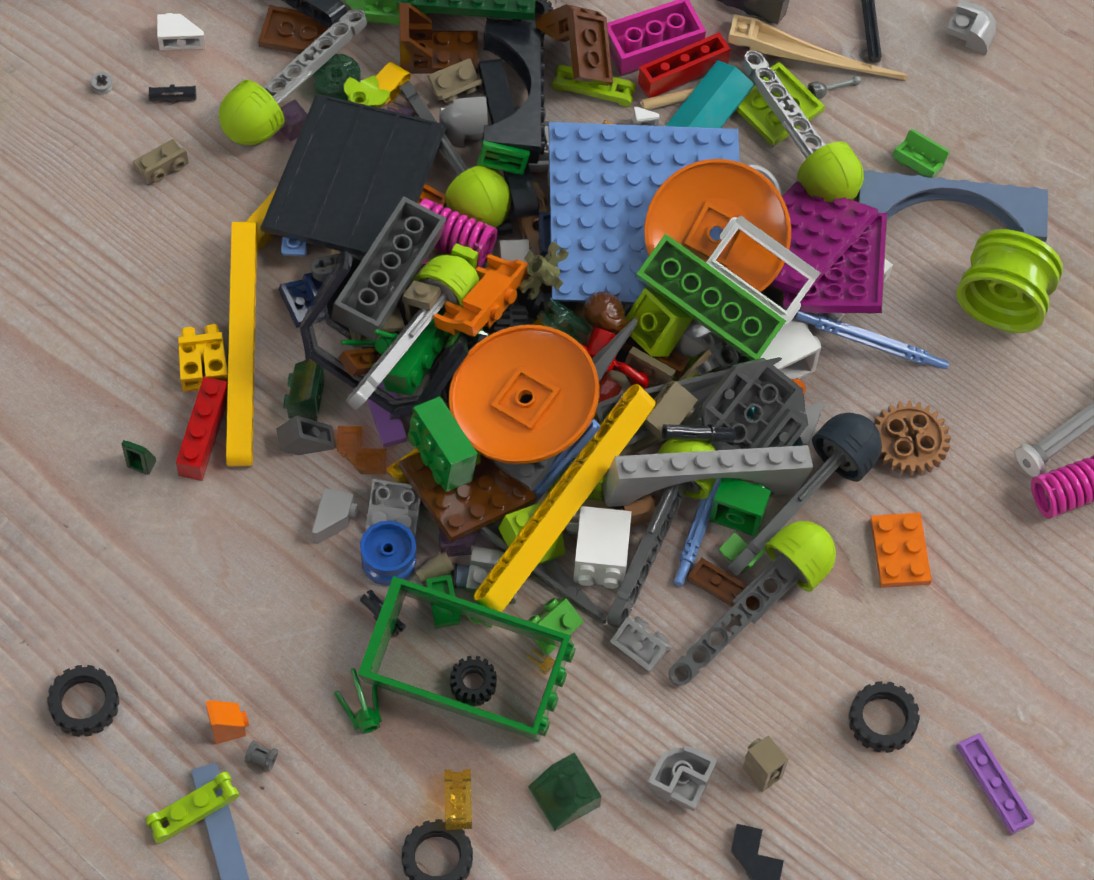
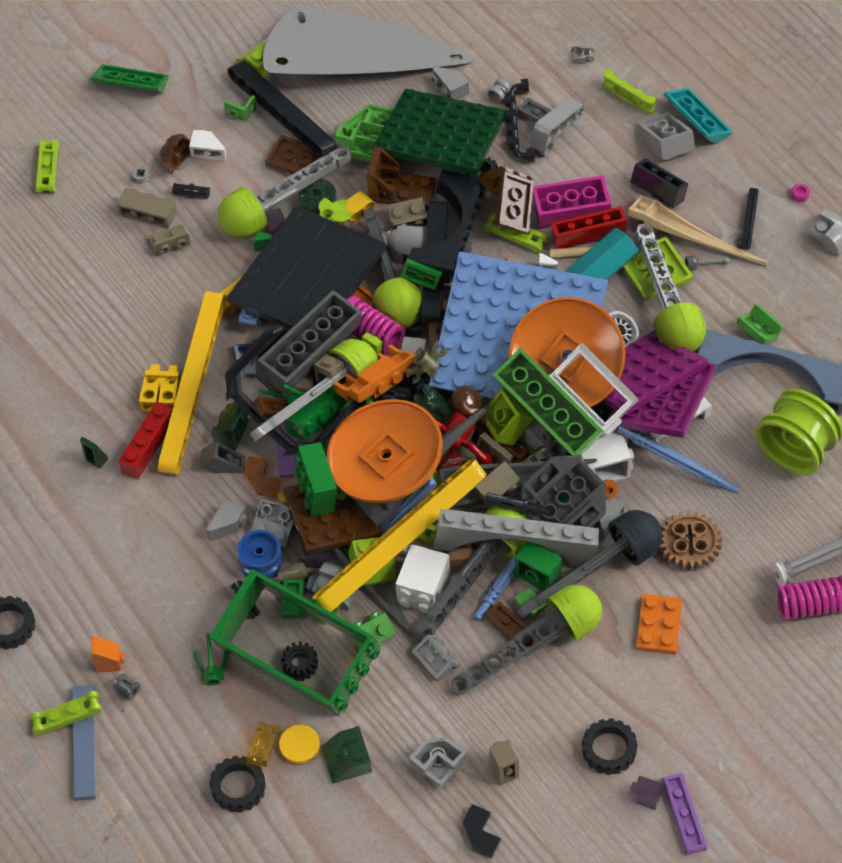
camera: 20 degrees right, 5 degrees down
(121, 125) = (146, 208): none -> dark tan brick
(139, 46) = (175, 151): none -> reddish brown hair
(283, 145) = (261, 240): none -> green slope
(501, 788) = (299, 744): none -> yellow tile
(944, 766) = (646, 792): none -> clear purple brick

